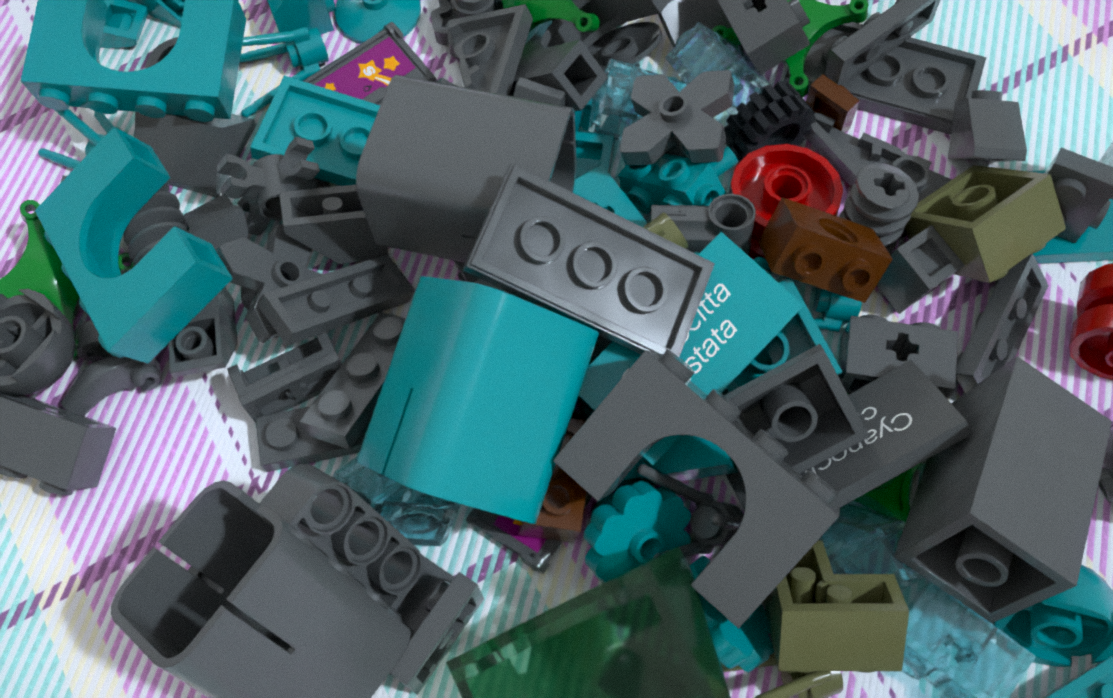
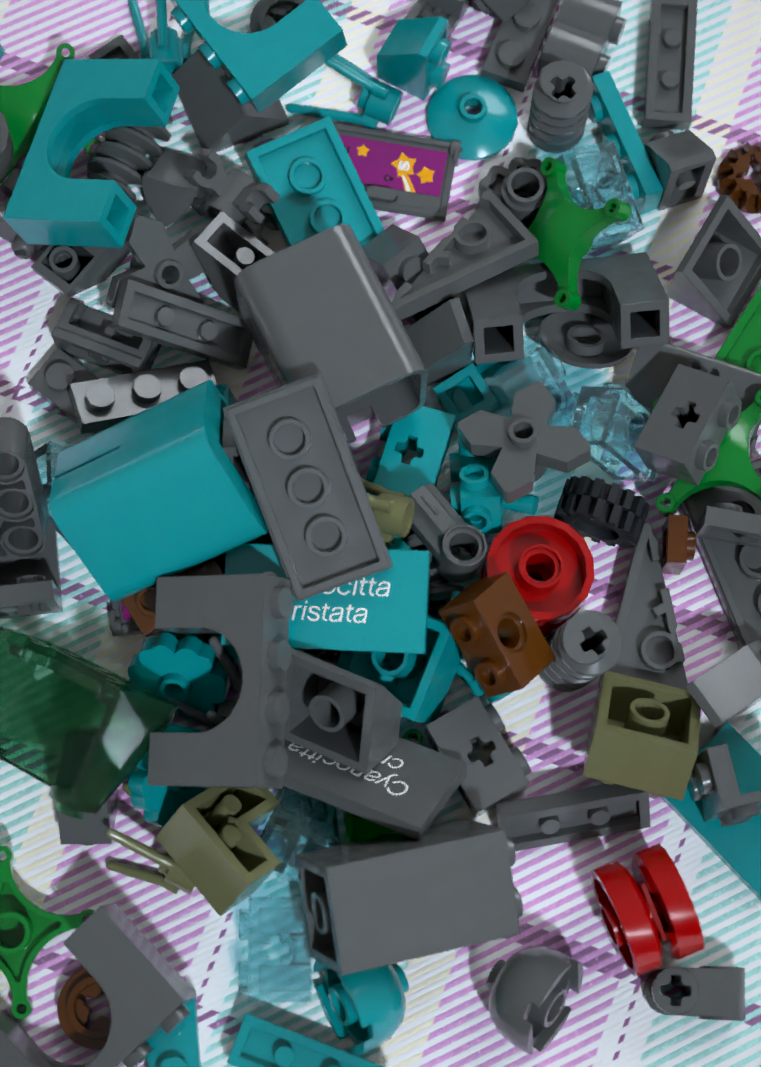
camera: 45 degrees right, 10 degrees up
(918, 269) = (563, 715): dark grey brick -> none

